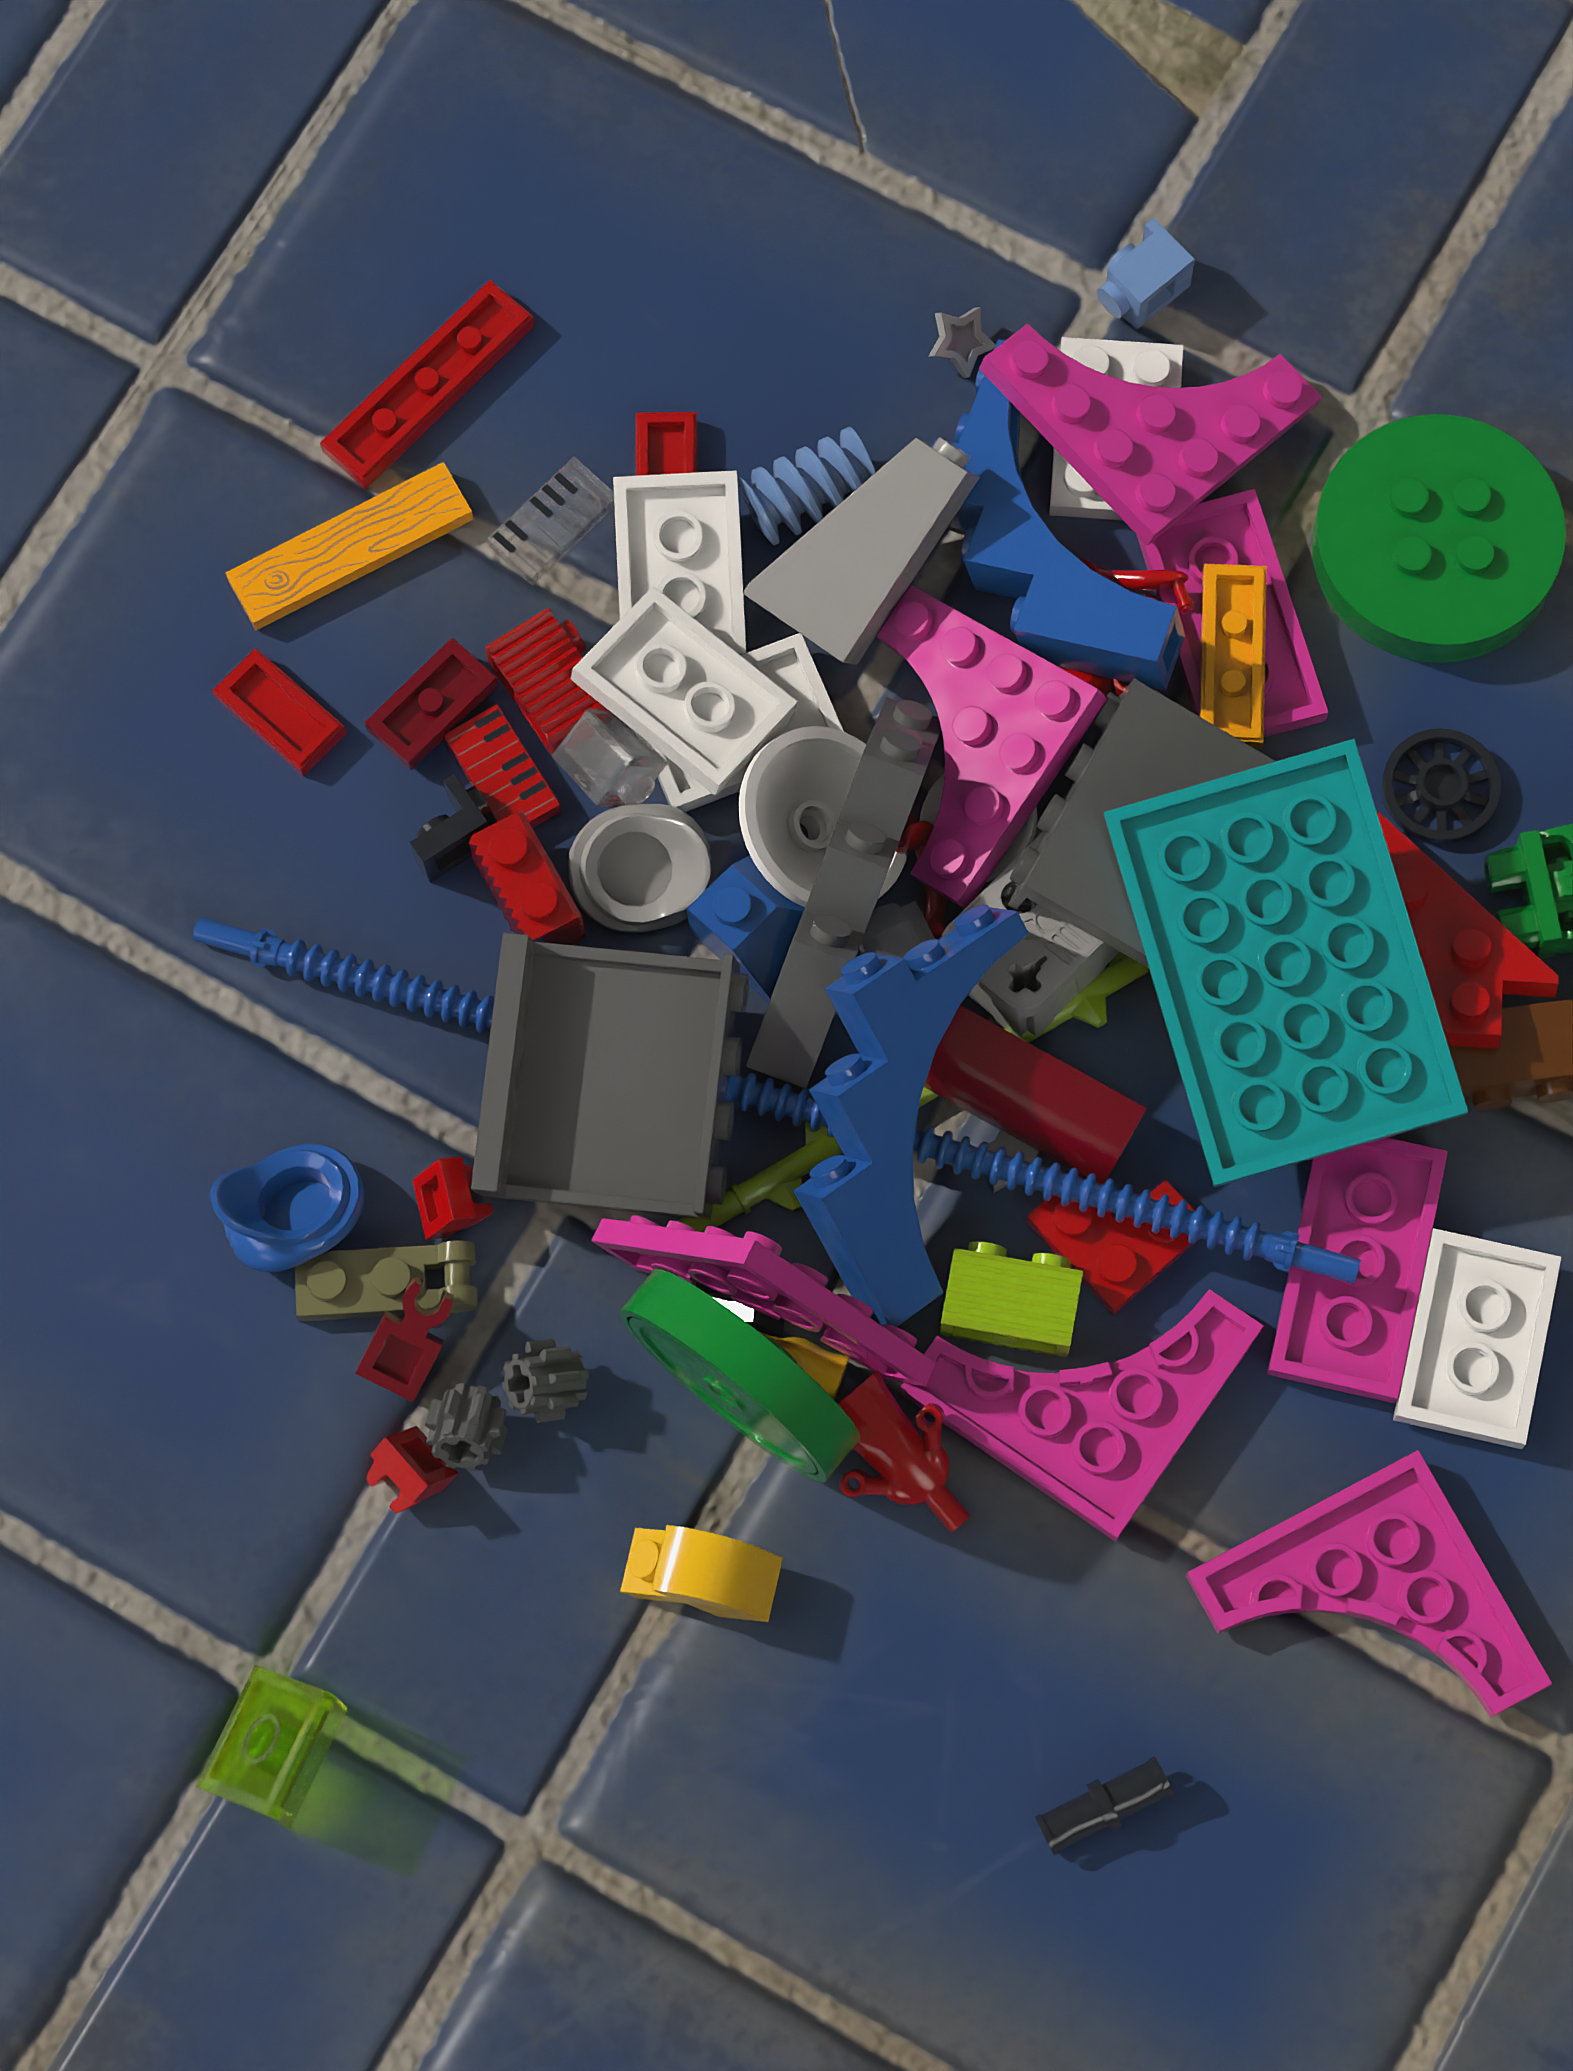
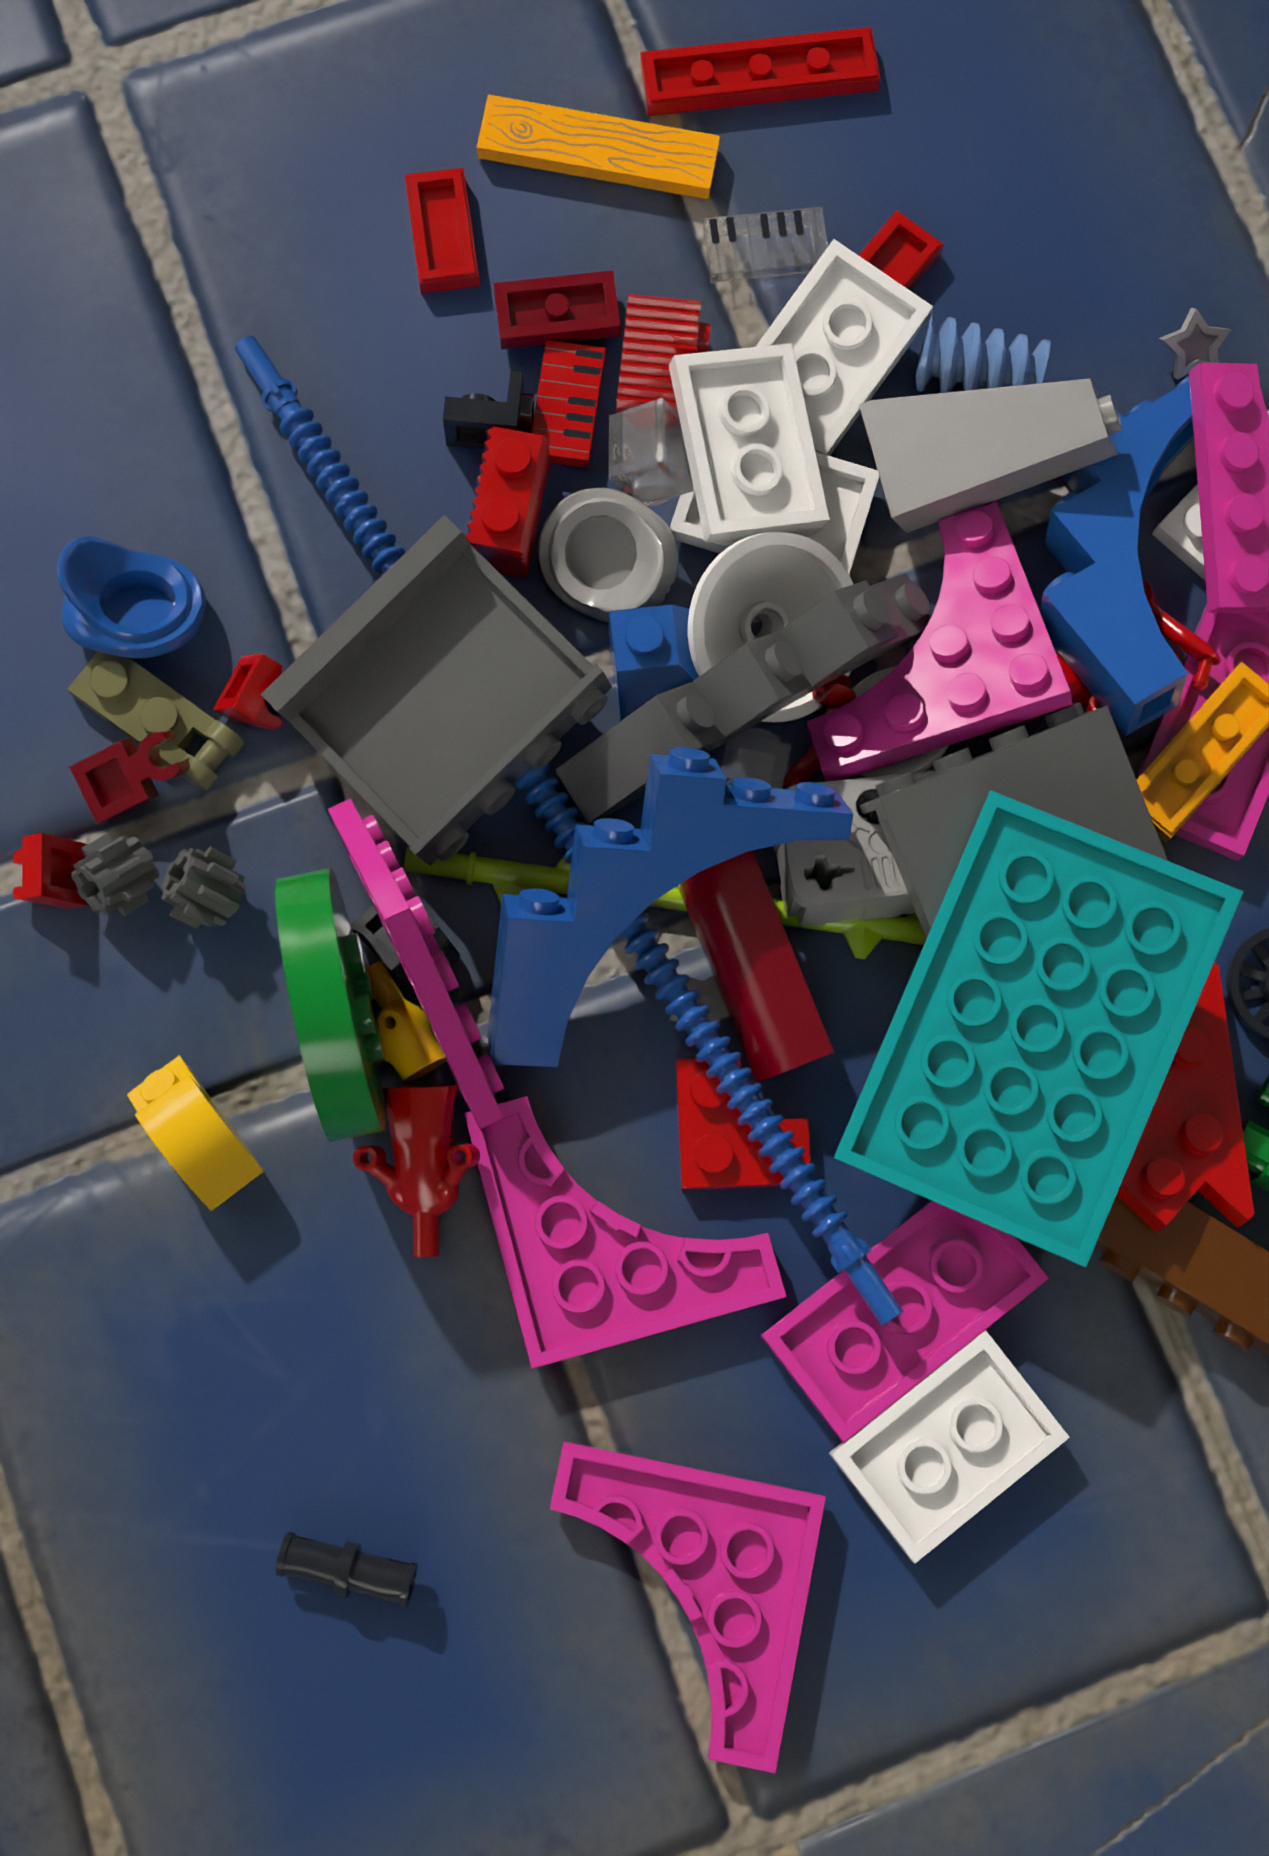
camera: 30 degrees right, 5 degrees up
(1011, 1299) = (608, 1114): lime brick -> none

